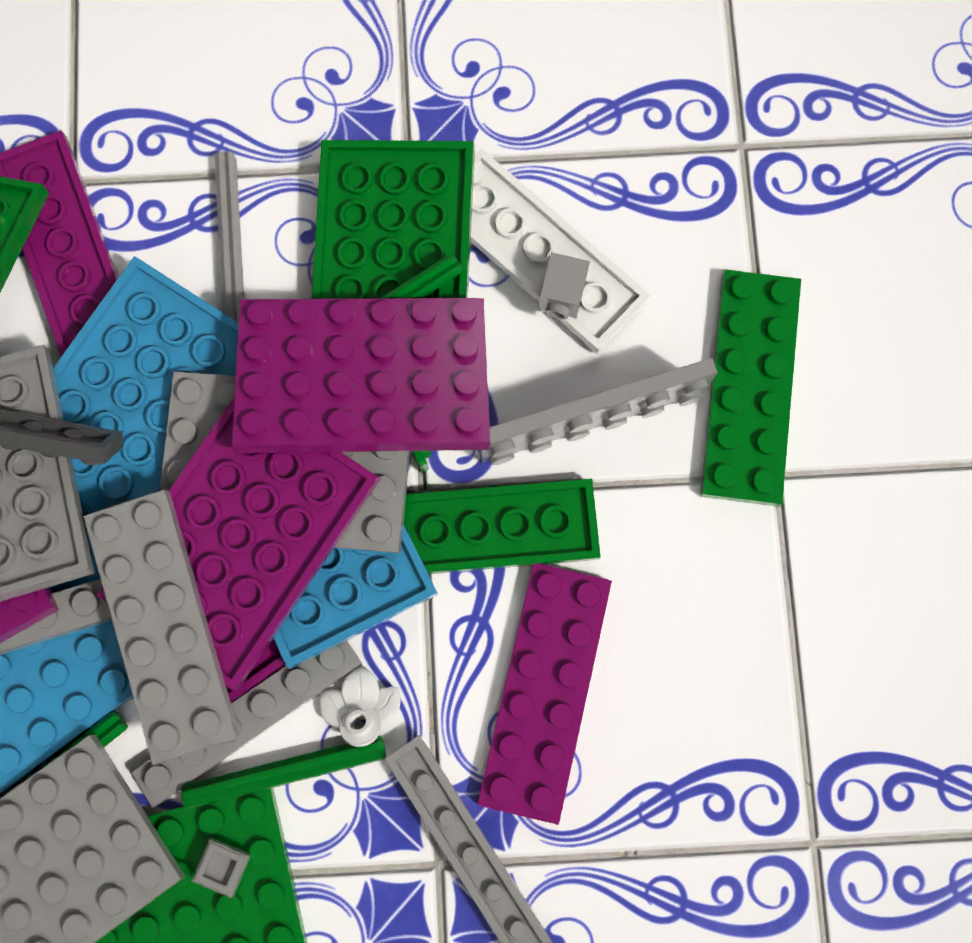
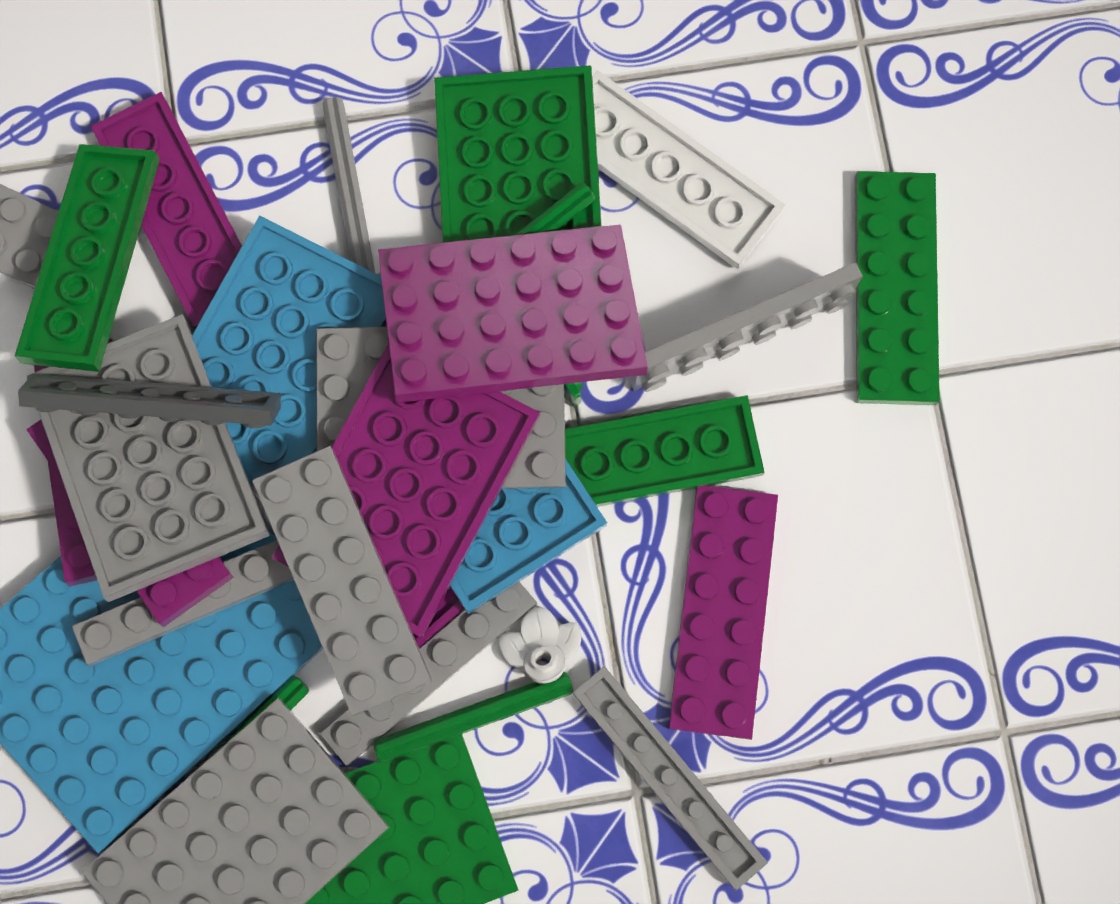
camera: 10 degrees left, 0 degrees up
(221, 867) = (425, 814): light grey tile -> none
(563, 286) = (698, 204): light grey brick -> none

